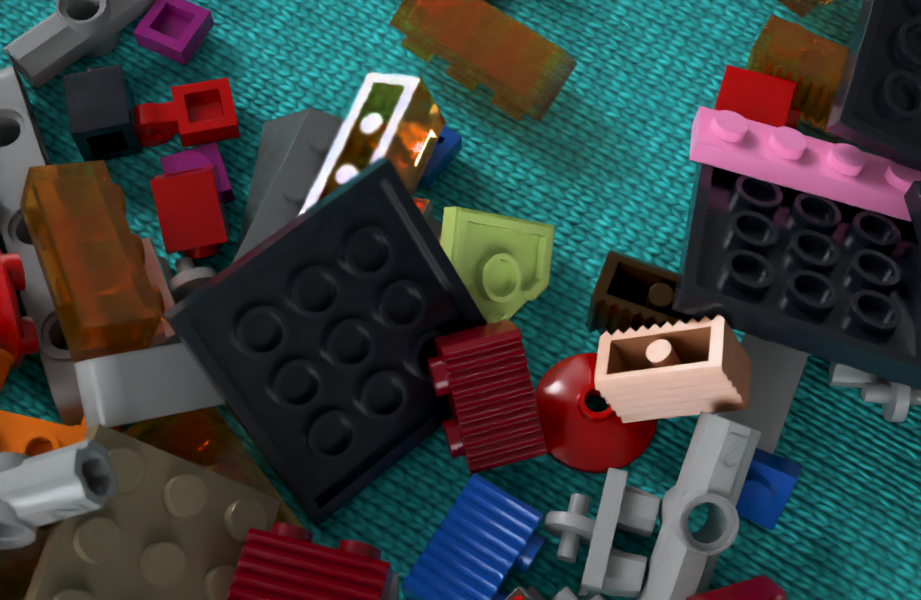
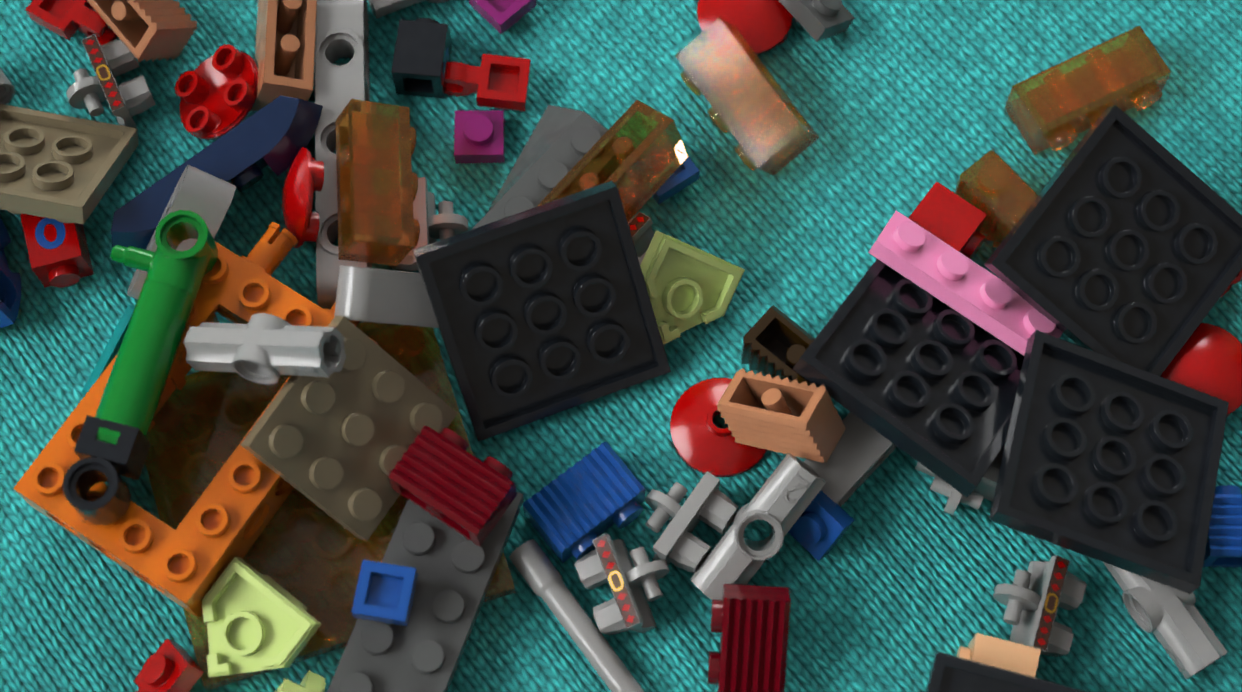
camera: 20 degrees right, 5 degrees up
(191, 211) = (465, 165): red brick -> none
(488, 396) = (637, 387): dark red brick -> none

